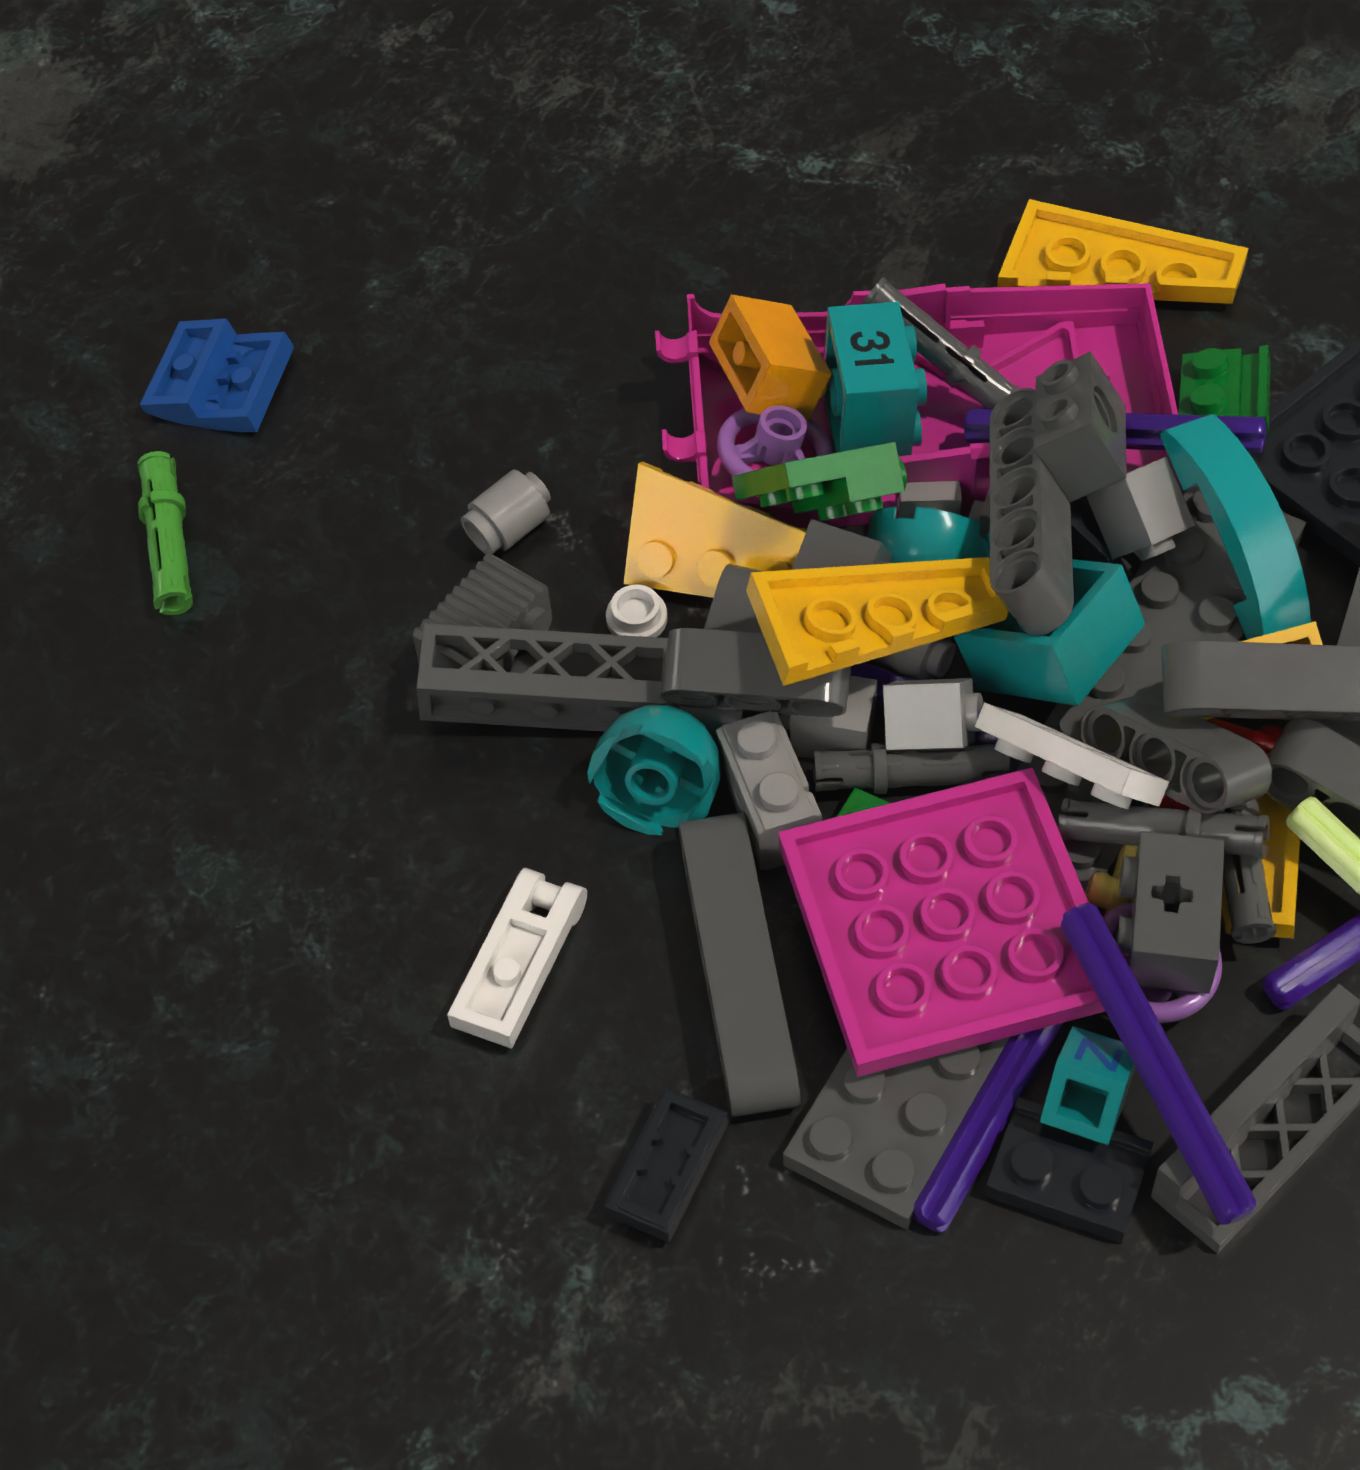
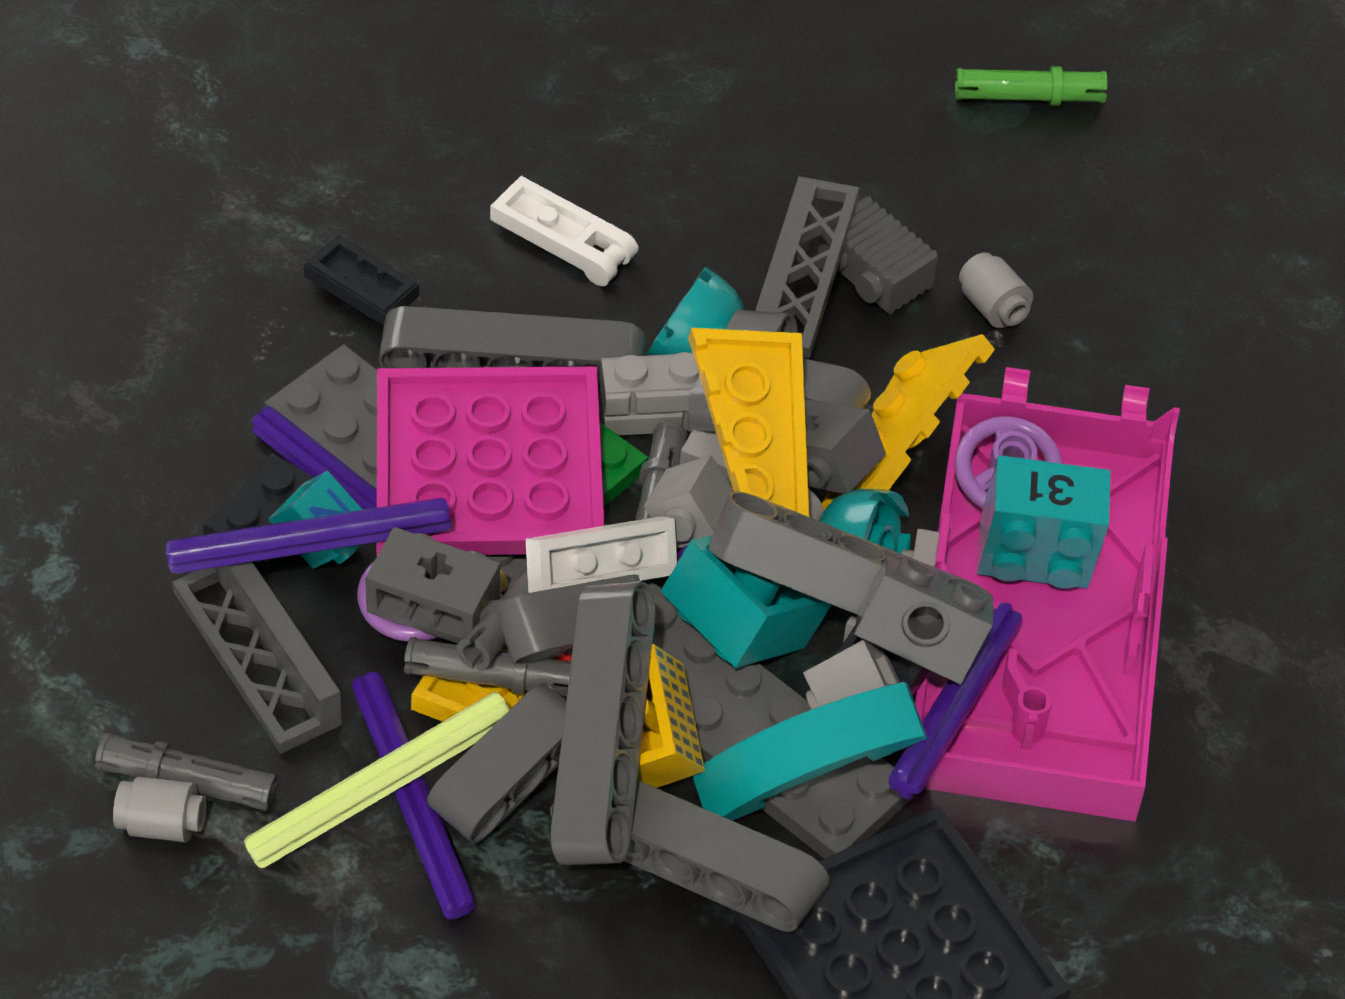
camera: 95 degrees right, 5 degrees down
(217, 376) = (1201, 140): blue slope -> none
(636, 612) = (868, 356): white plate -> none
(769, 356) = (1125, 449): light orange brick -> none
(829, 483) = (934, 454): green plate -> none
(945, 351) = (1078, 596): dark grey pin -> none
(1085, 248) = (1214, 800): yellow wing -> none
(1226, 383) = (1006, 831): green plate -> none

